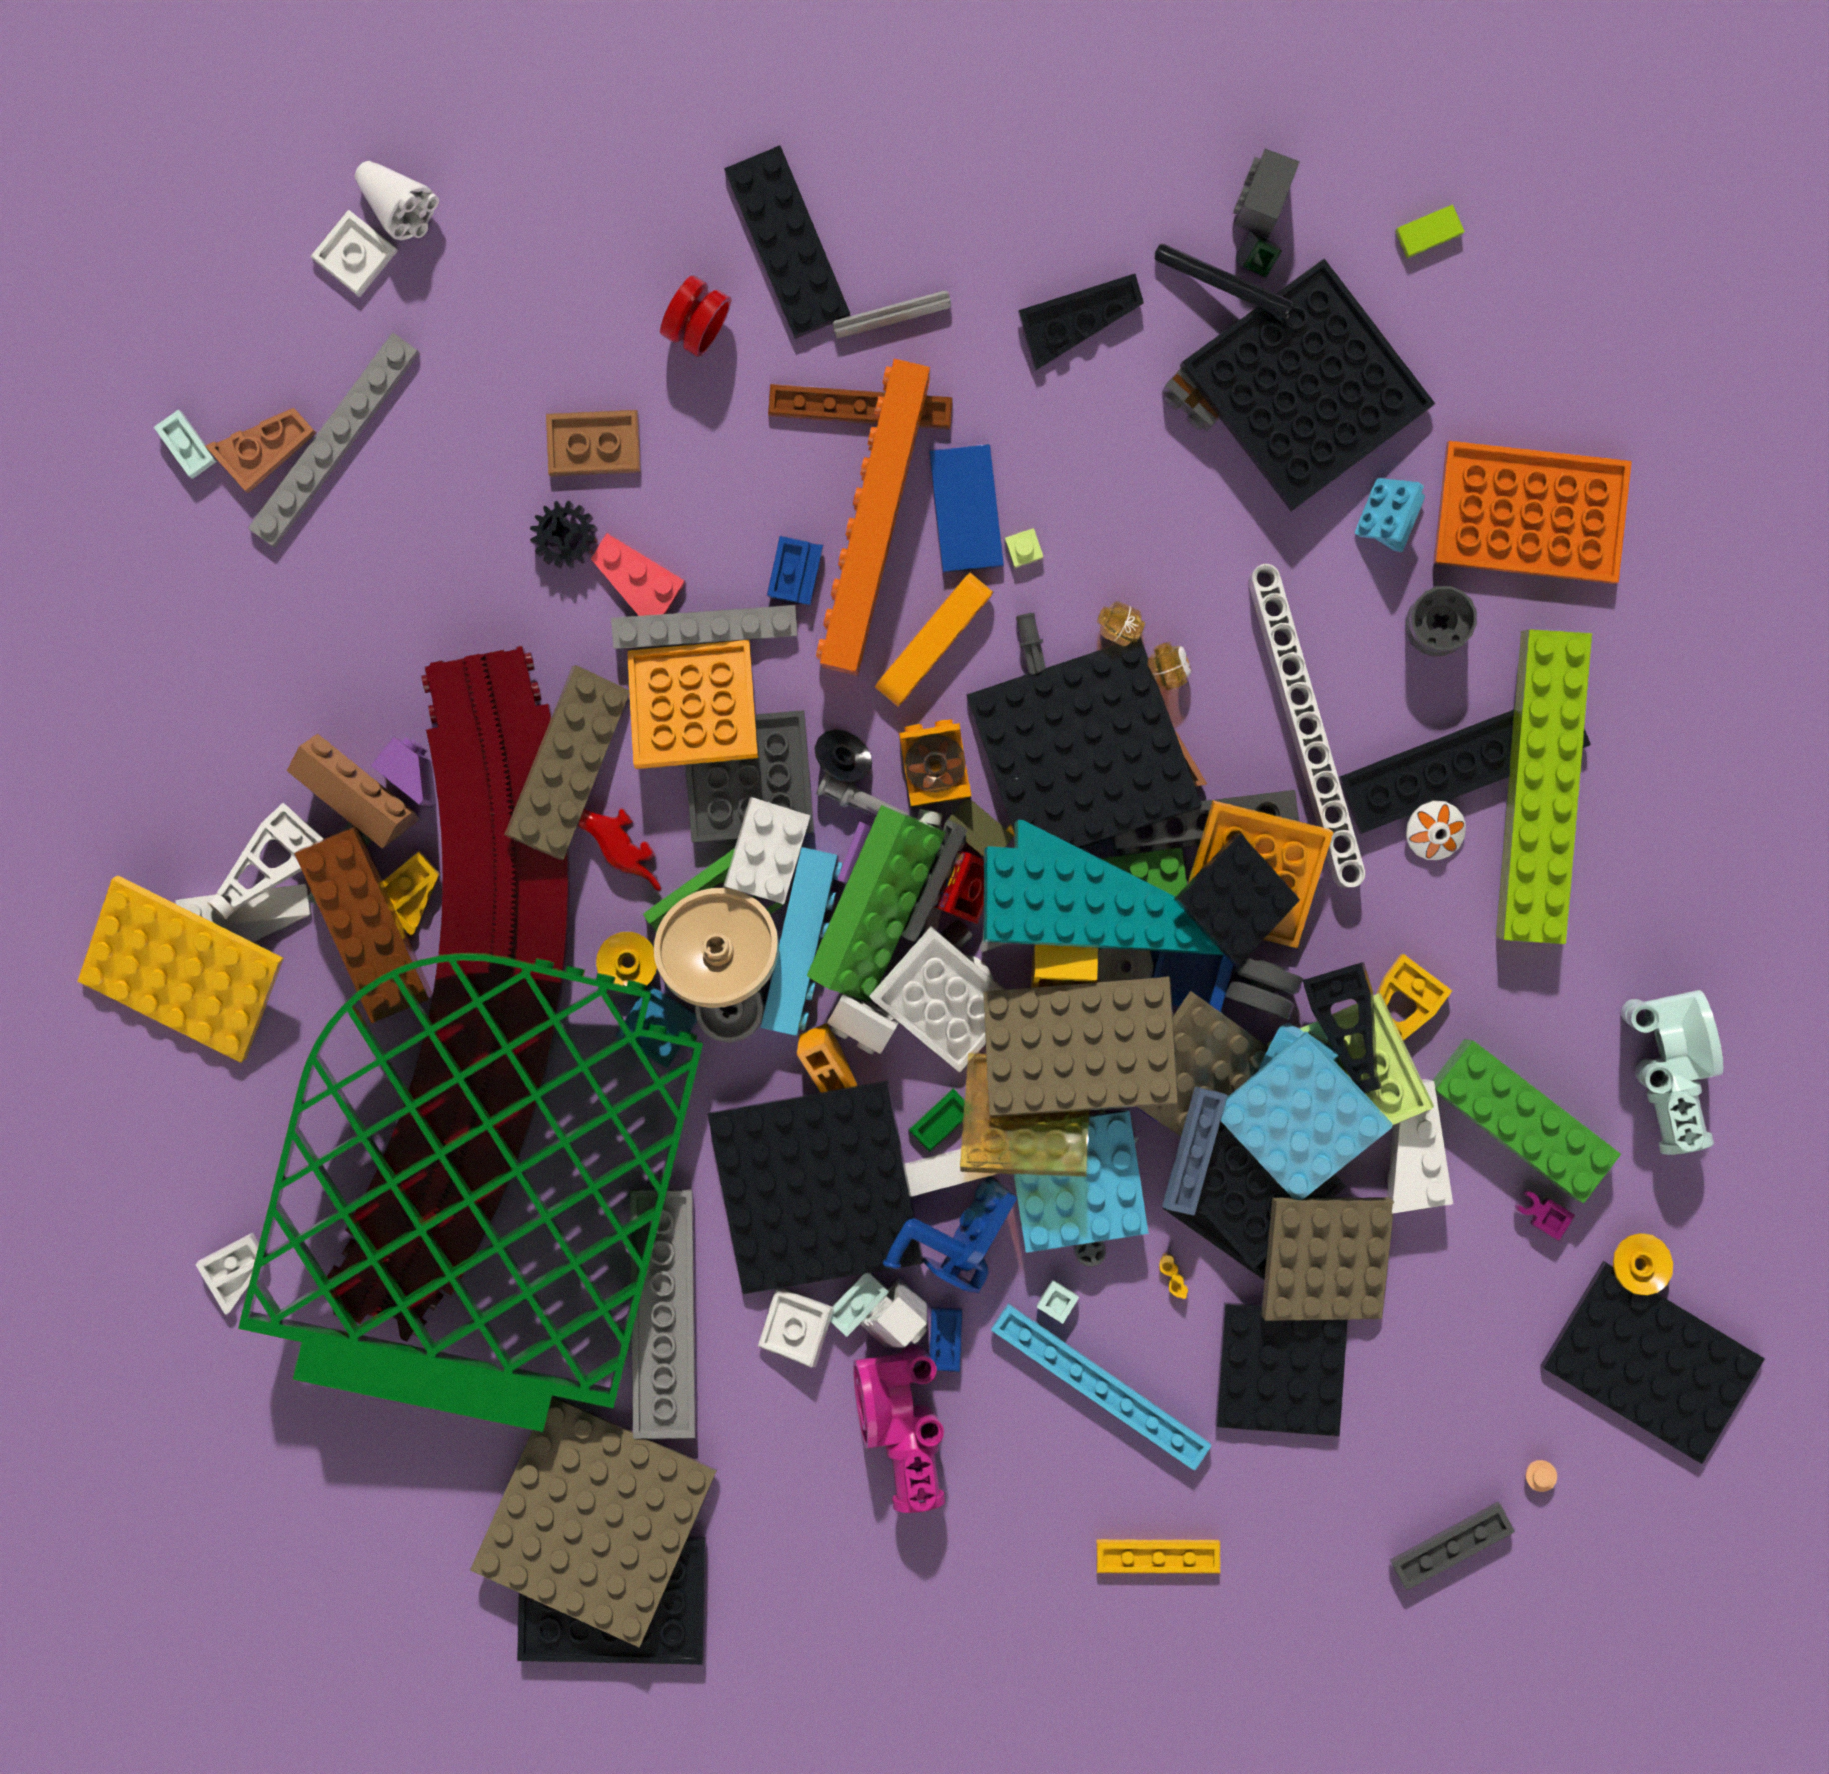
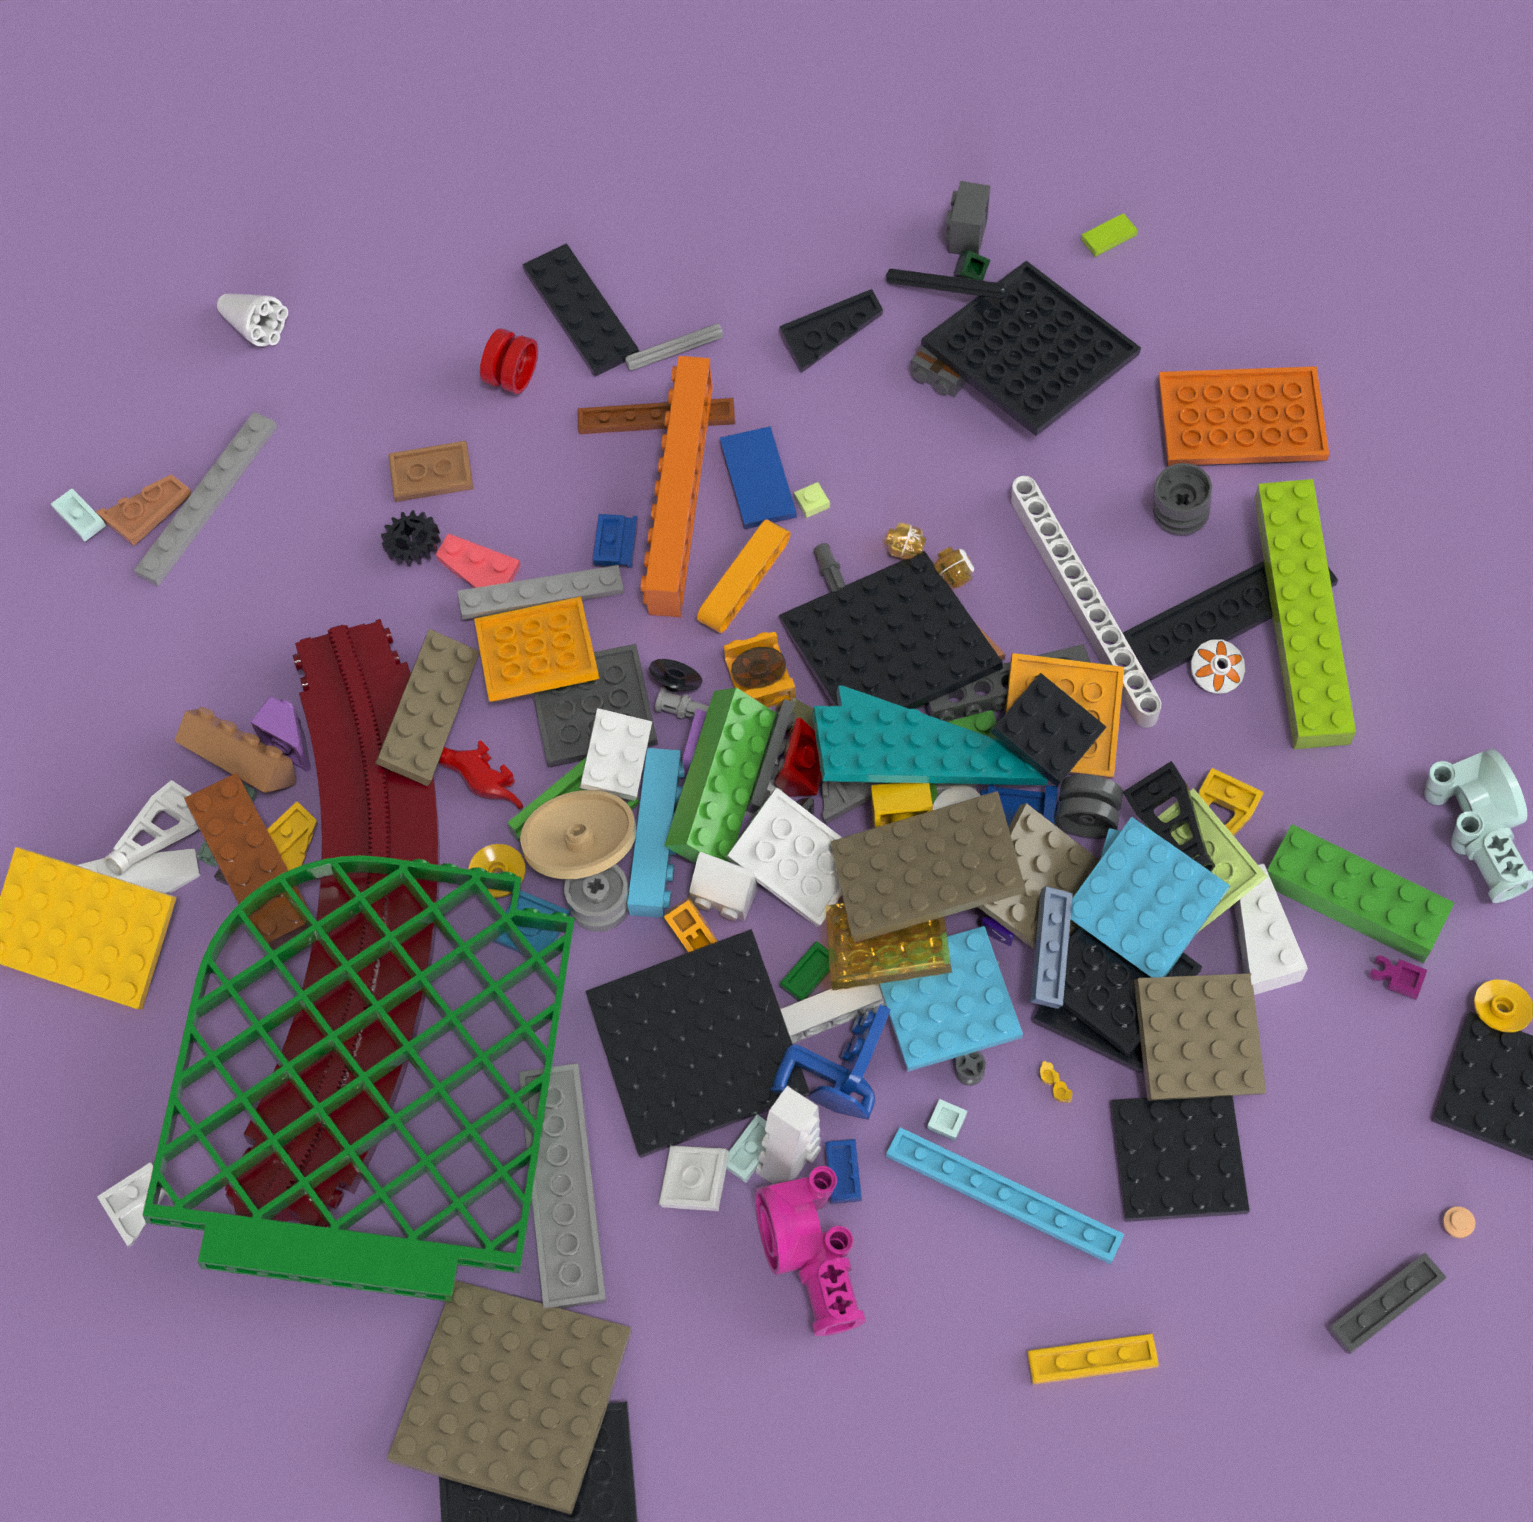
camera: 10 degrees left, 25 degrees down
(354, 253) = (218, 363): white tile -> none
(1391, 512) = (1123, 429): medium azure bracket -> none

